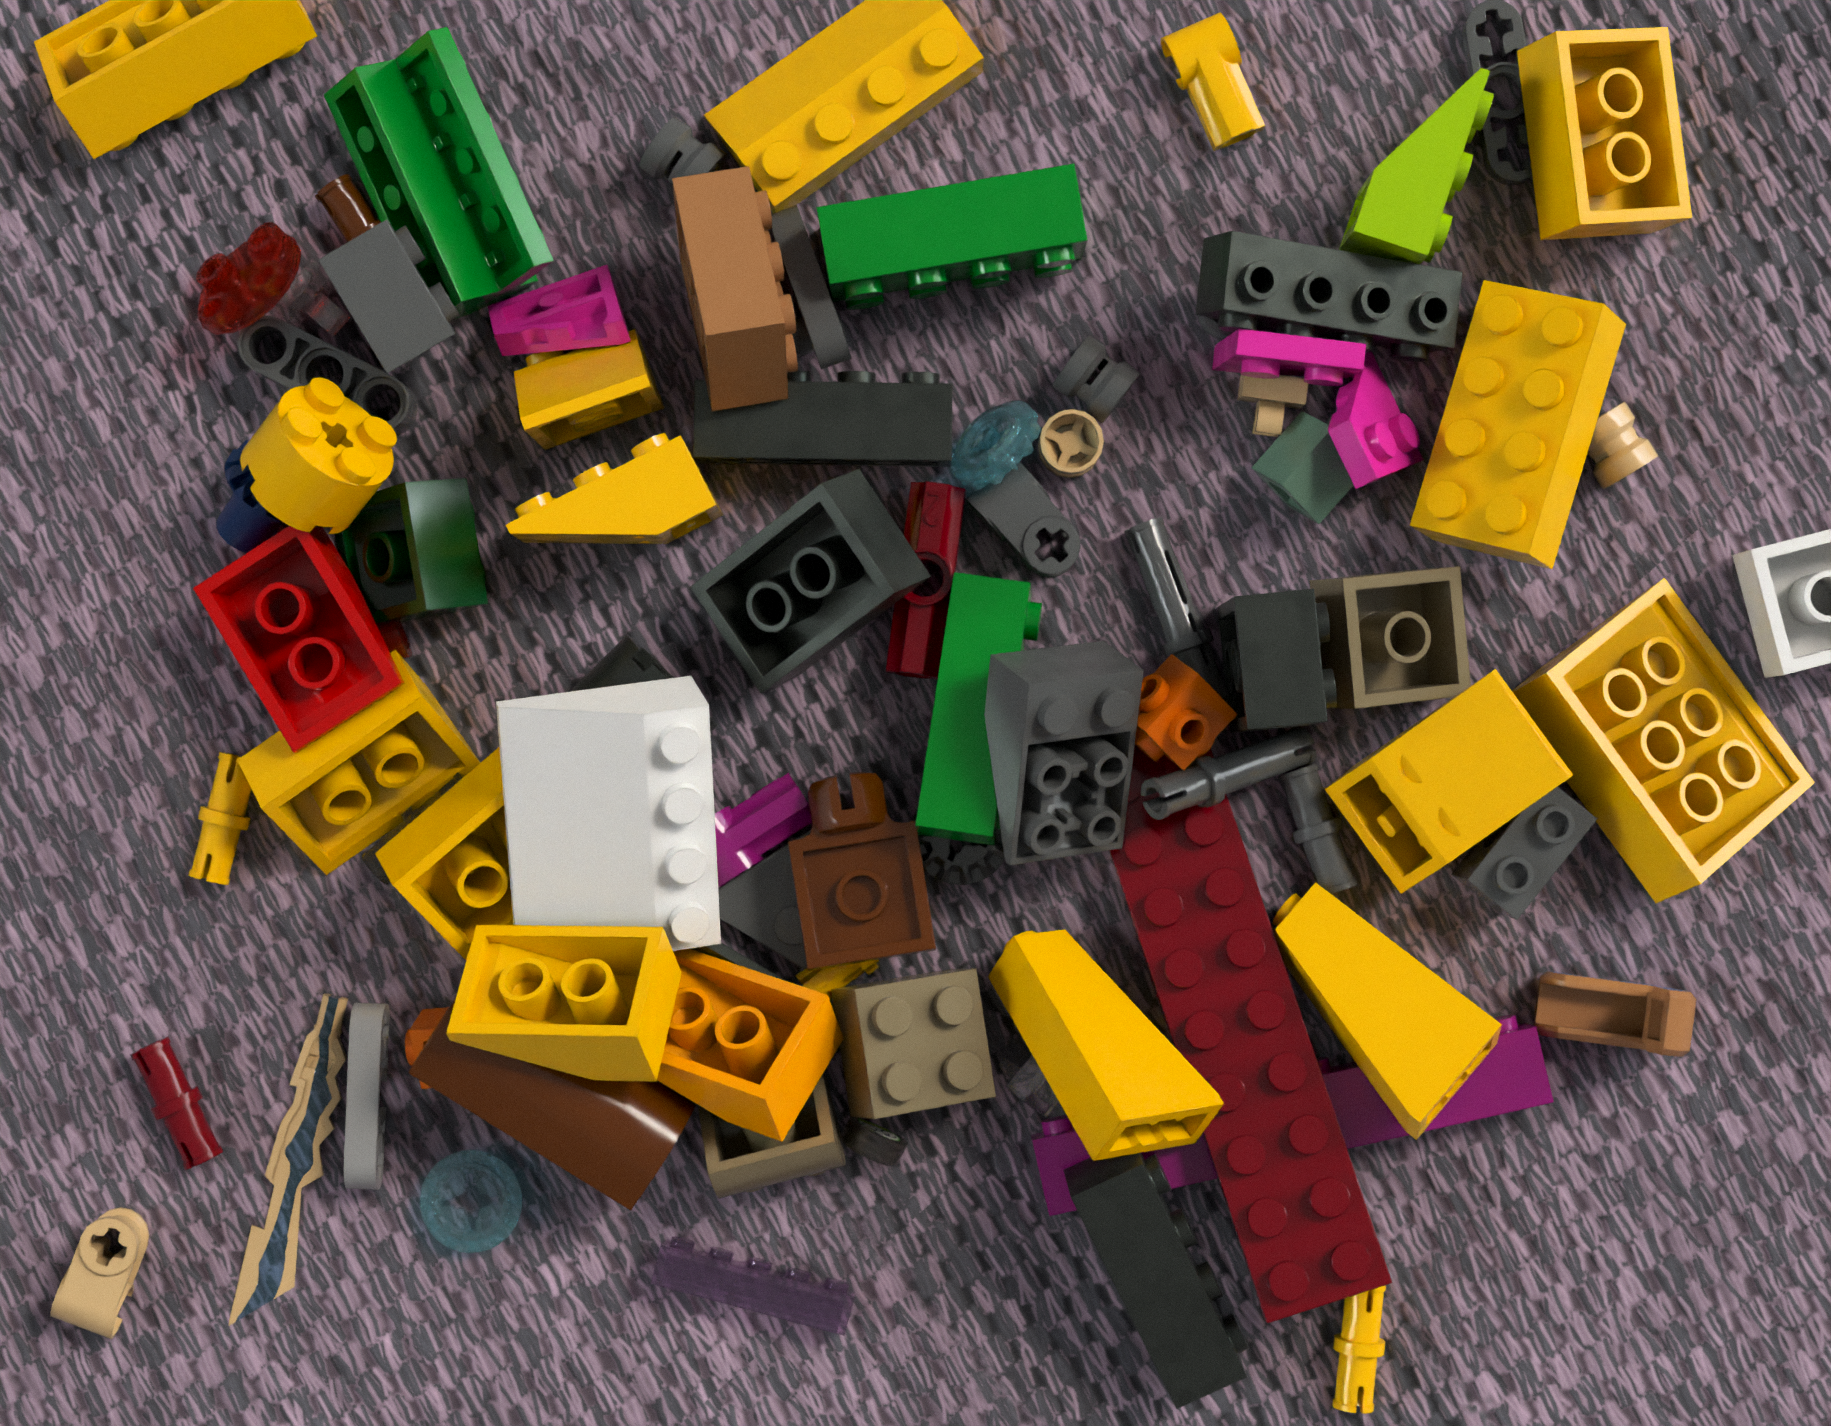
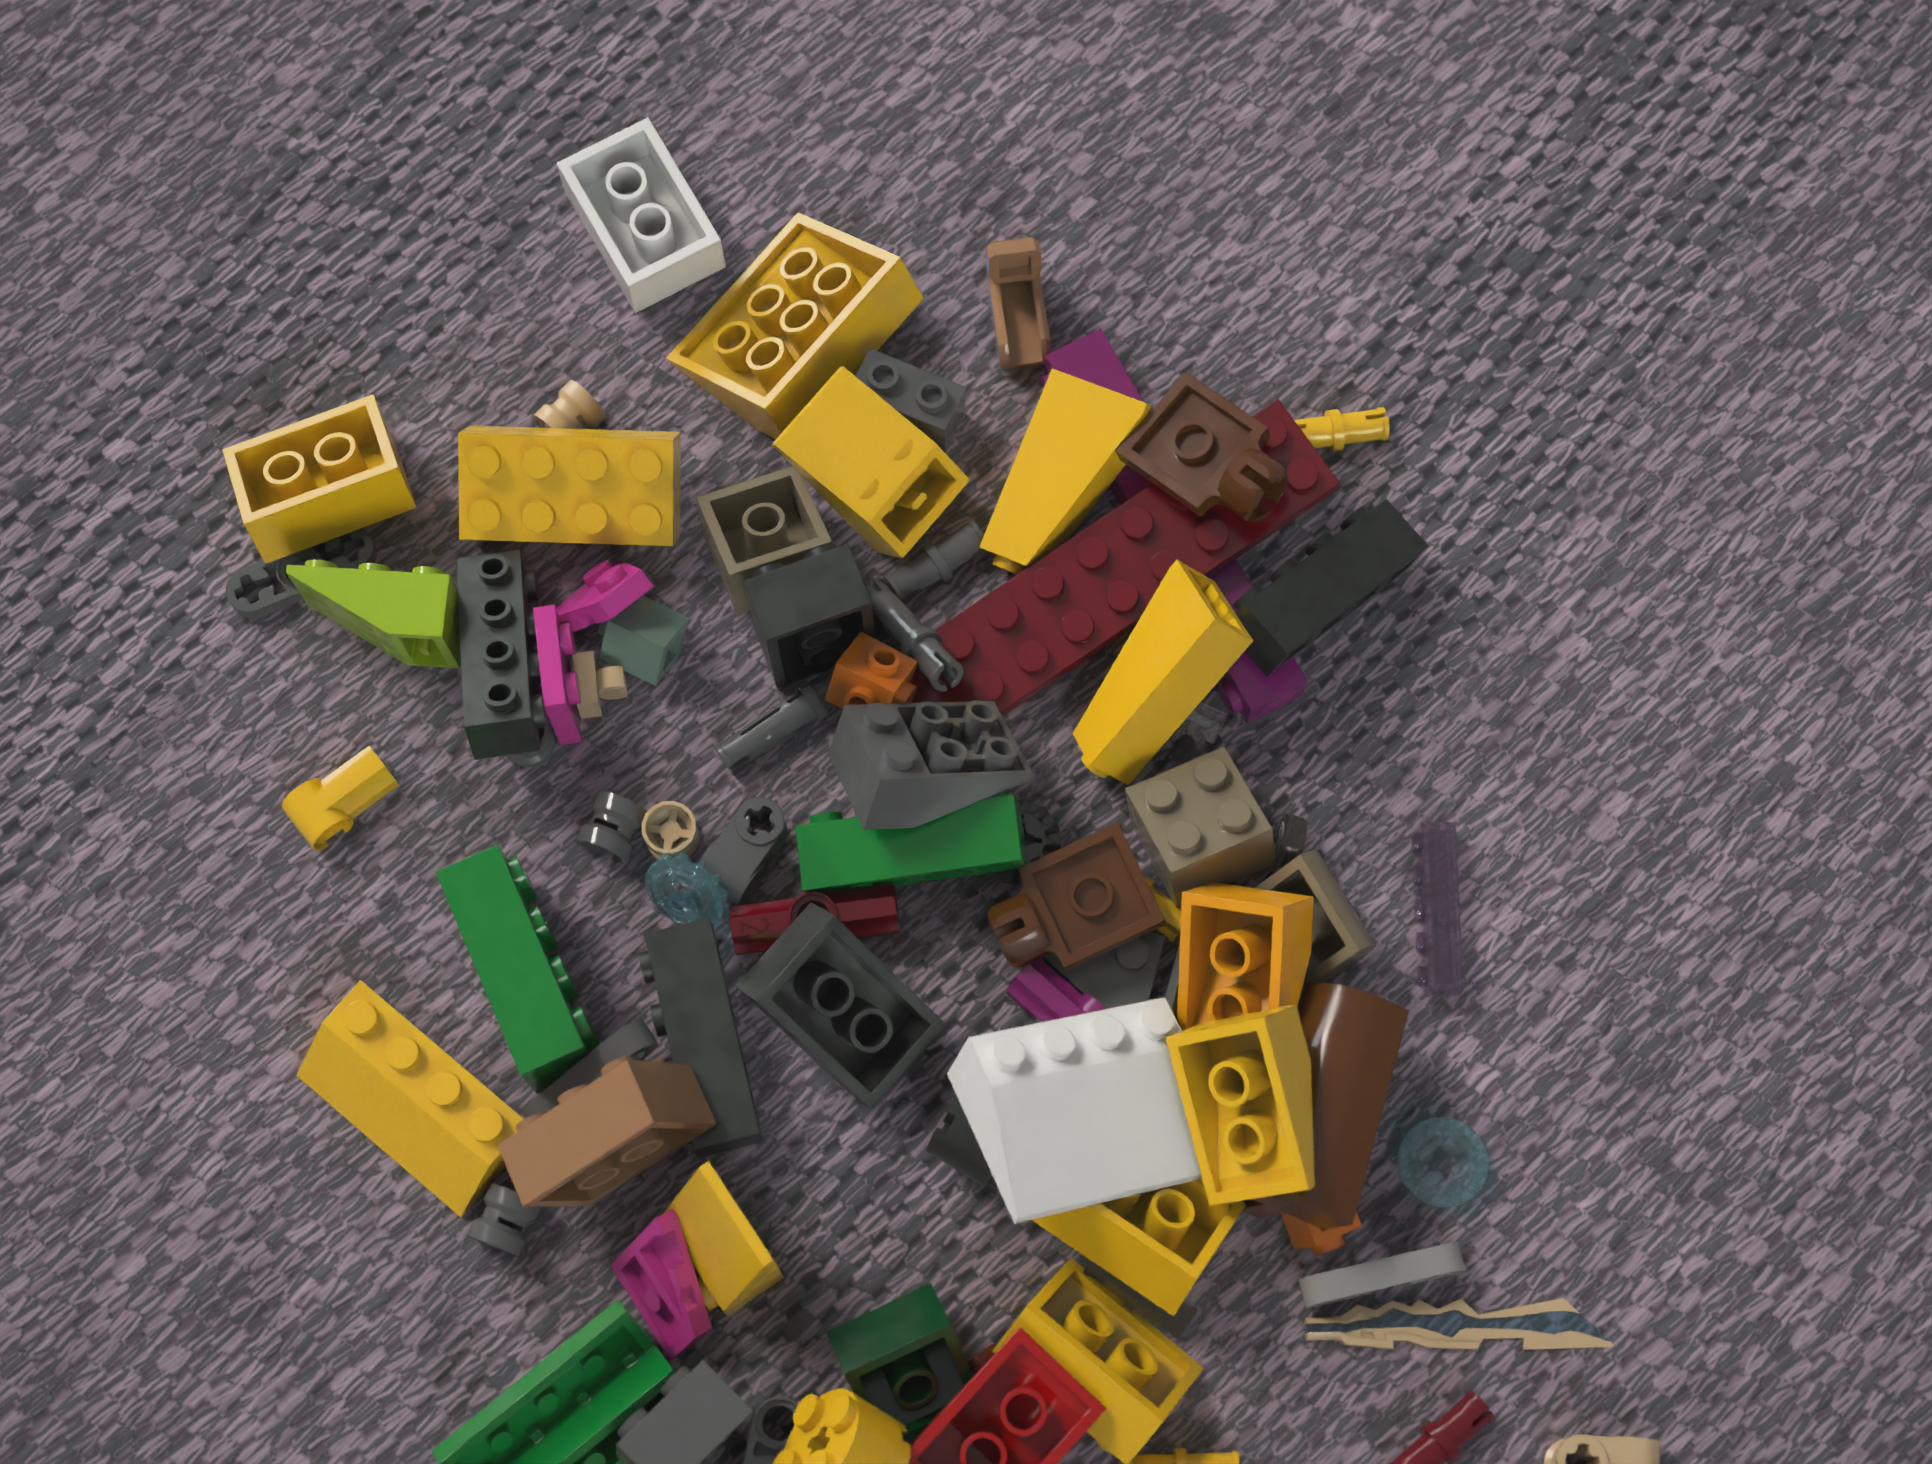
camera: 105 degrees left, 15 degrees down
(637, 503) = (804, 1159): yellow slope -> none
(1343, 1174) = (1205, 452): none -> reddish brown plate

